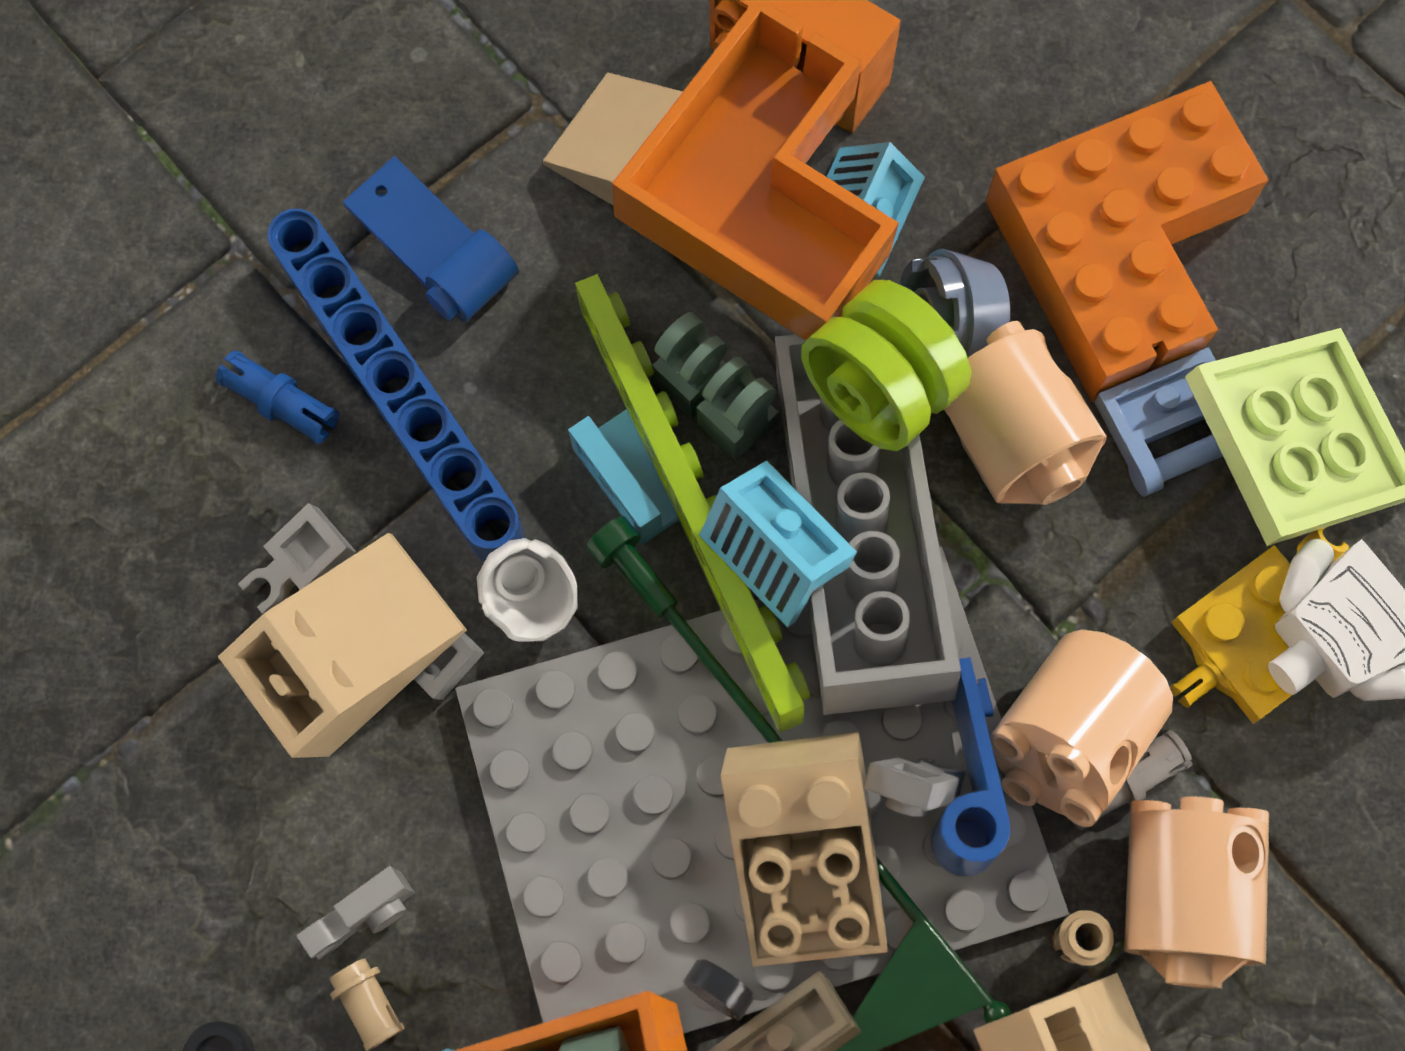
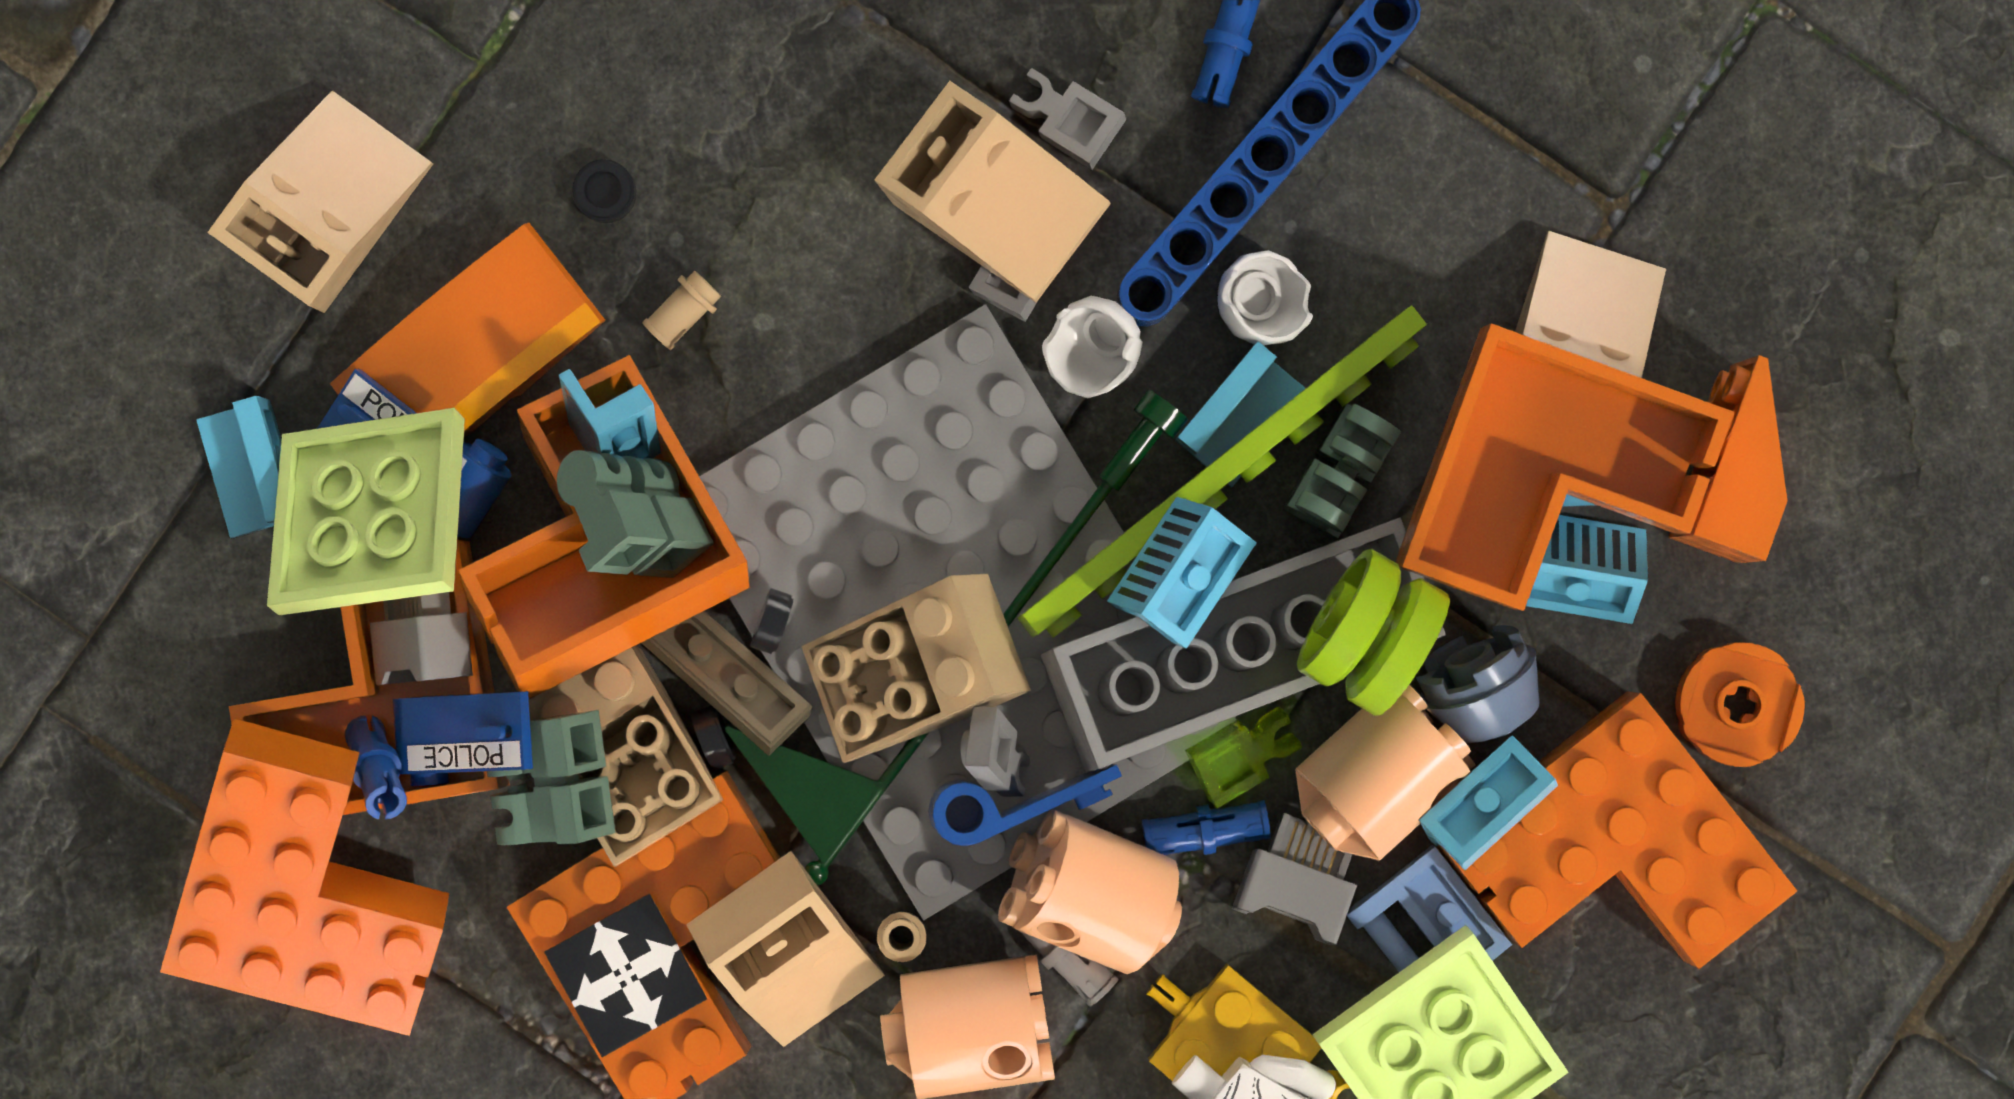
camera: 70 degrees right, 15 degrees up
(371, 905) = (767, 290): light grey plate -> none
(449, 259) = (1430, 144): blue door -> none
(530, 420) = (1264, 298): none -> white hair
(971, 560) = (1234, 756): none -> clear neon green plate
(1025, 72) = (1768, 684): none -> orange plate
(1034, 604) = (1207, 828): none -> blue pin
(1072, 323) = (1488, 802): none -> medium azure panel
(1104, 528) = (1299, 880): none -> light grey piece

